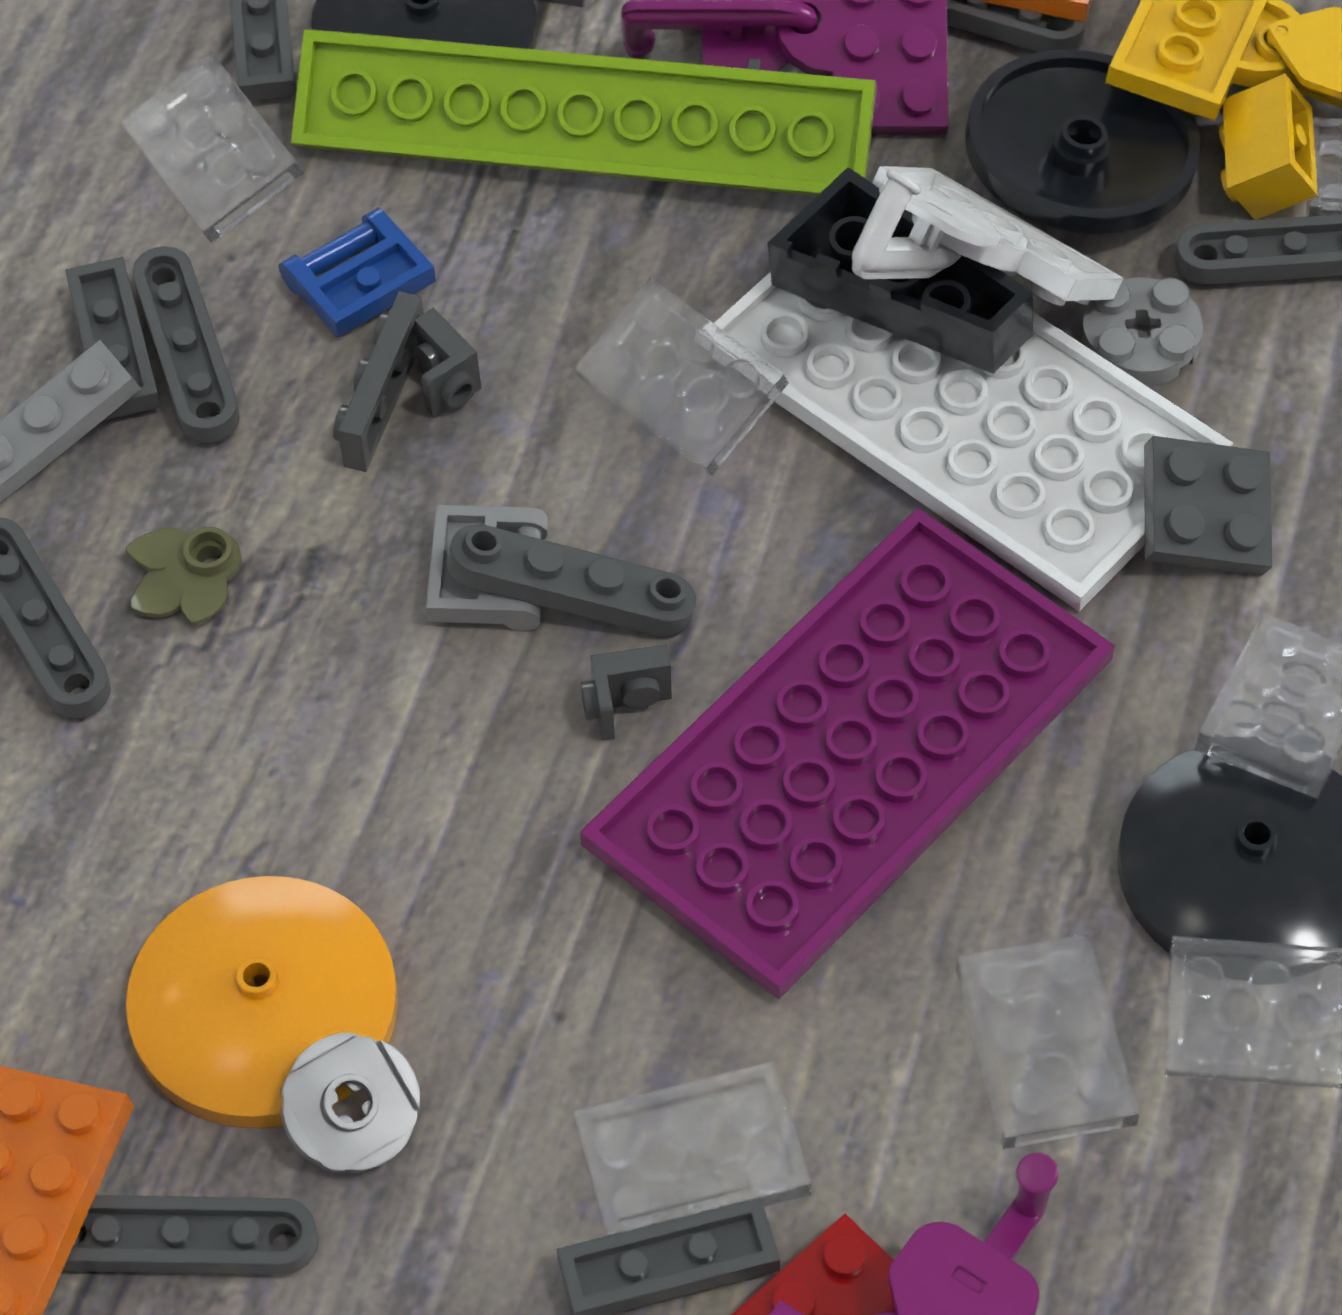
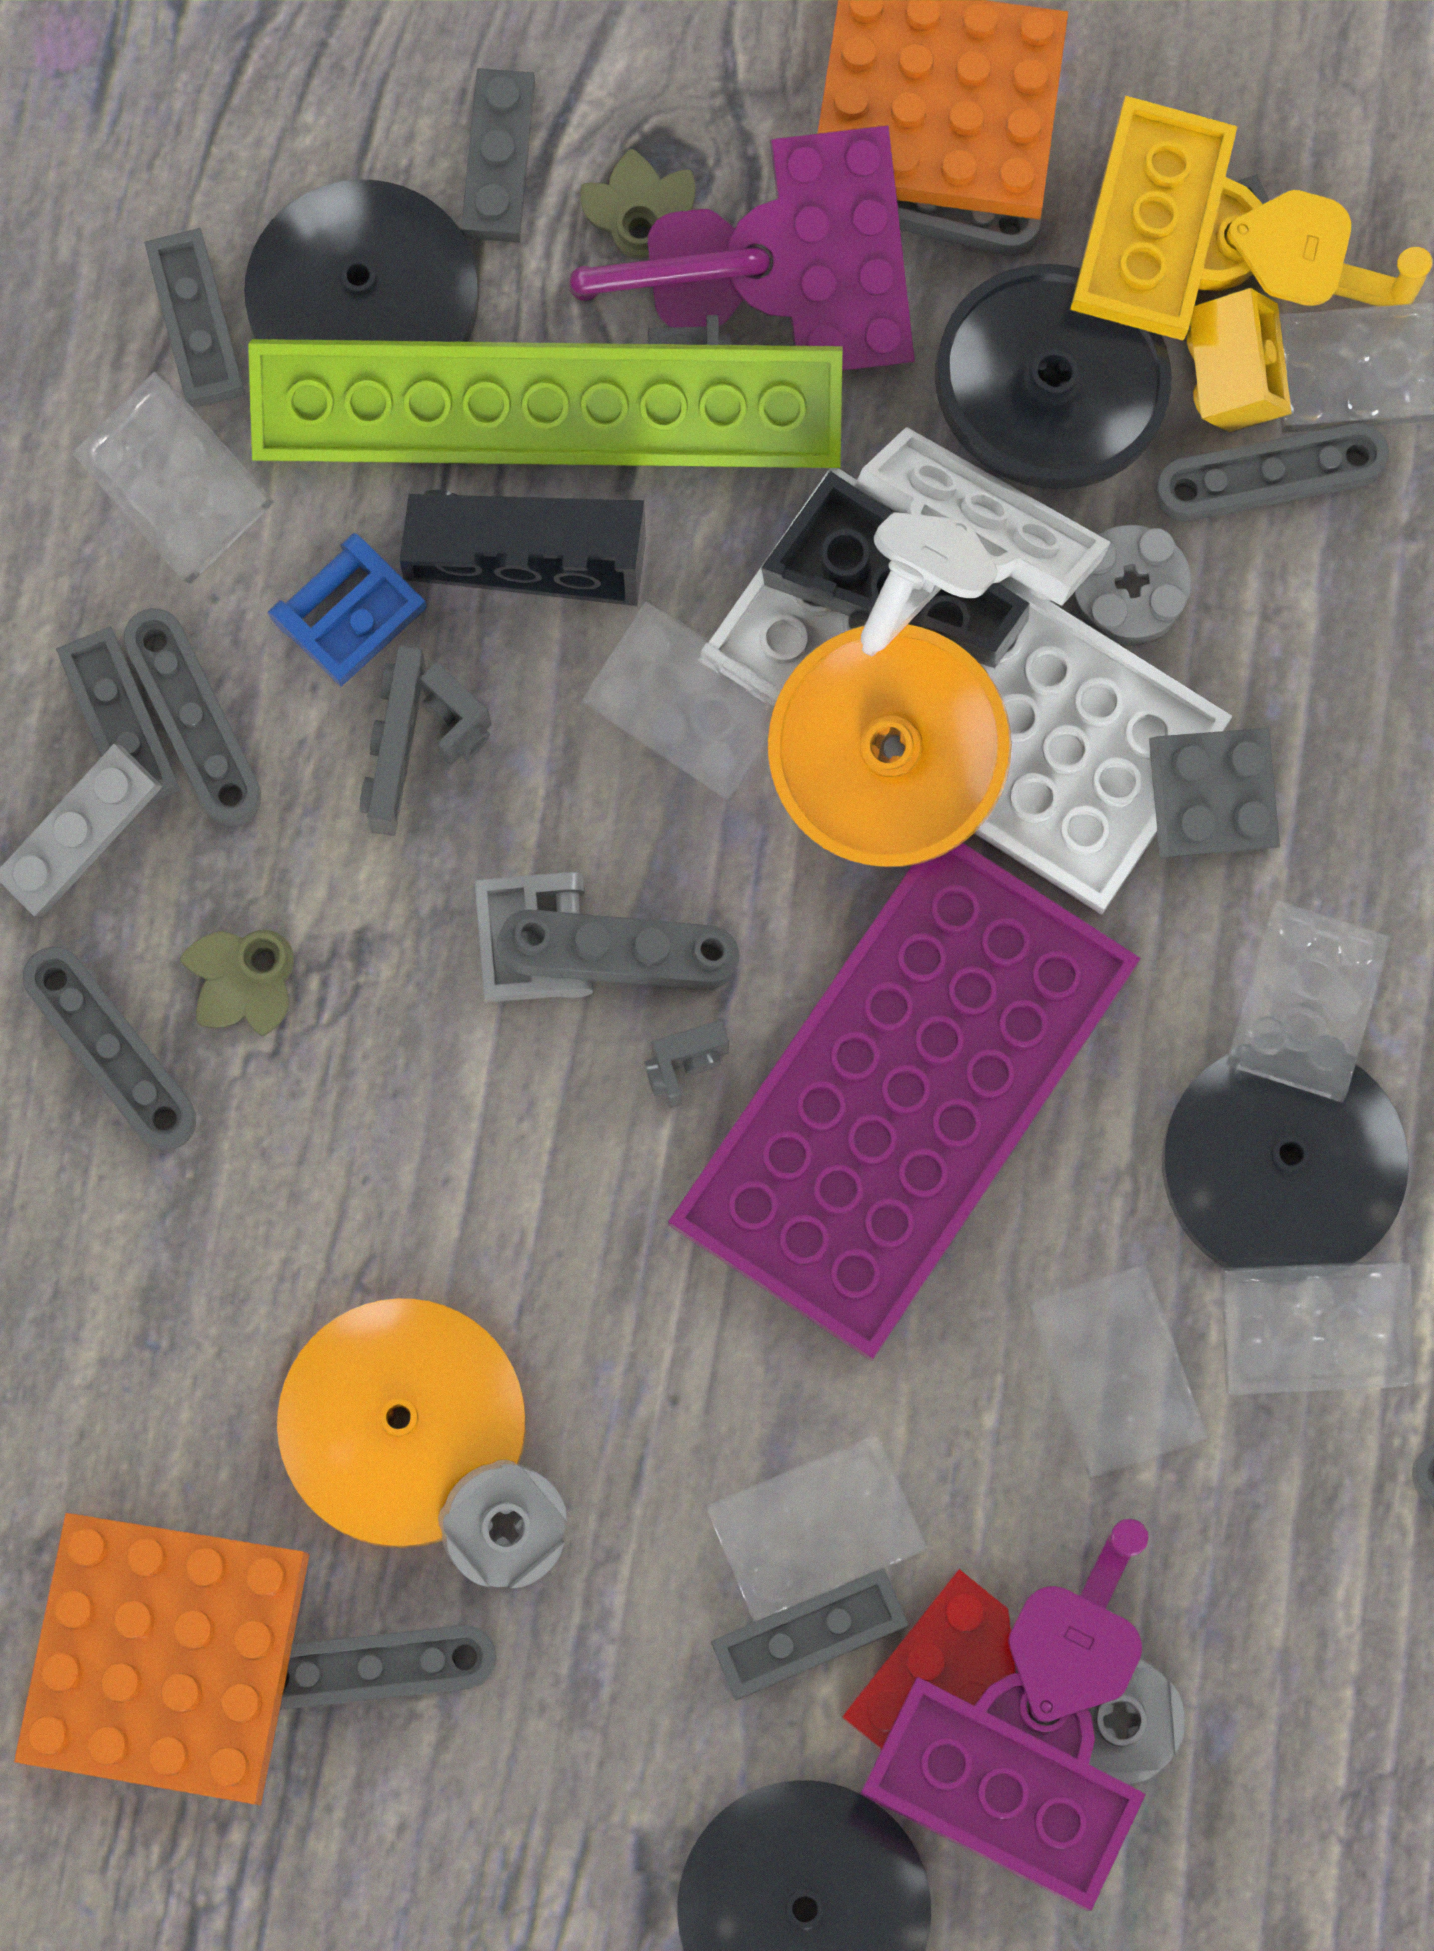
camera: 10 degrees left, 20 degrees up
(546, 227) = (526, 545): none -> black wedge
(876, 413) = (832, 738): none -> light orange dish

